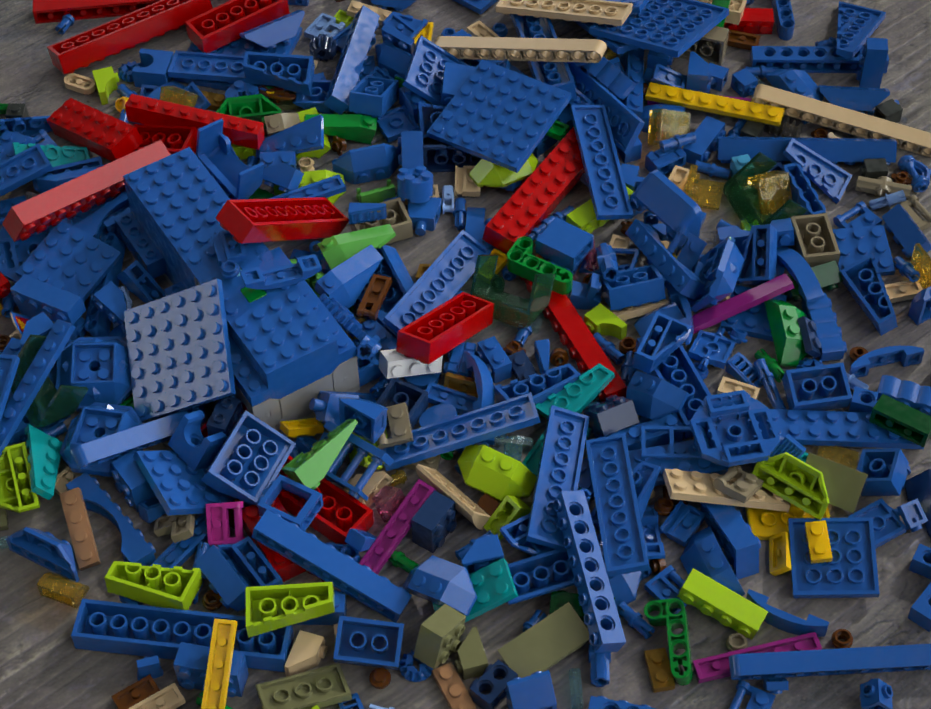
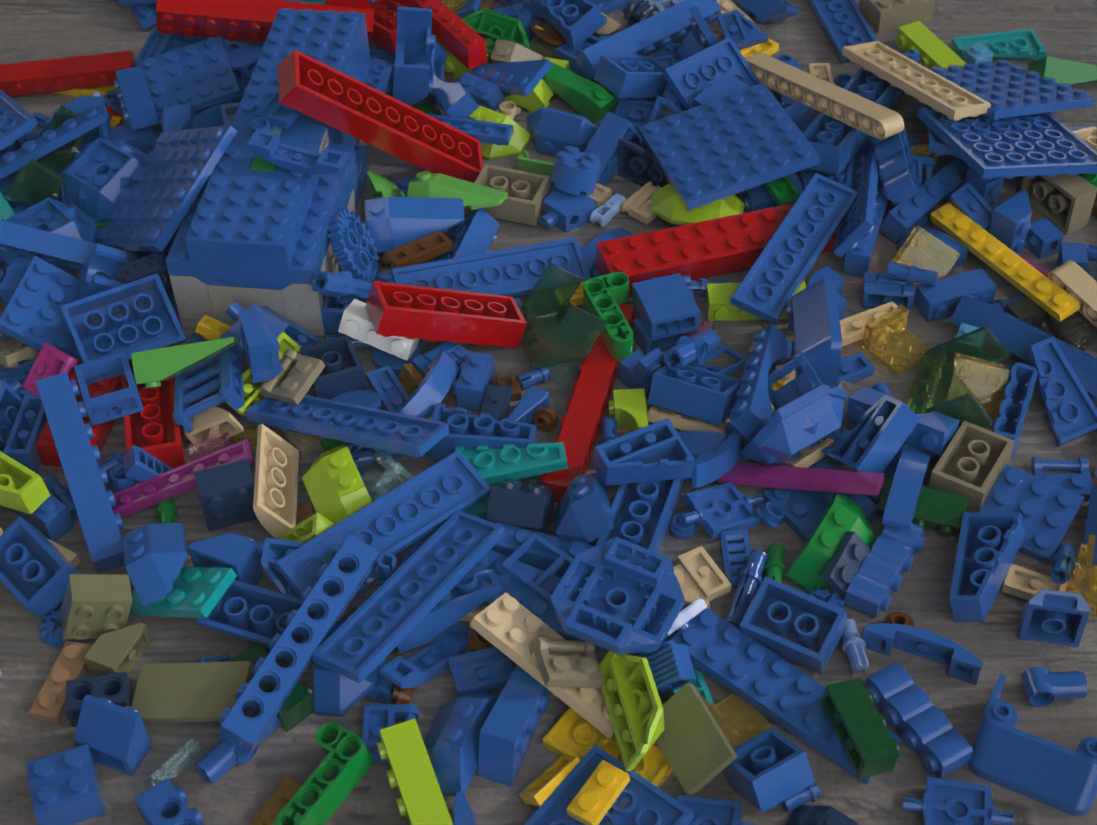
camera: 40 degrees right, 5 degrees down
(338, 145) = (558, 104): reddish brown plate -> none
(366, 212) = (493, 169): blue slope -> none
(380, 678) = (15, 614): reddish brown plate -> none
(459, 213) = (612, 222): blue axle -> none
(620, 242) = (739, 343): tan plate -> none
(635, 620) = (312, 752): blue pin -> none
(713, 170) = (932, 327): blue pin -> none
(863, 400) = (839, 669): blue brick -> none

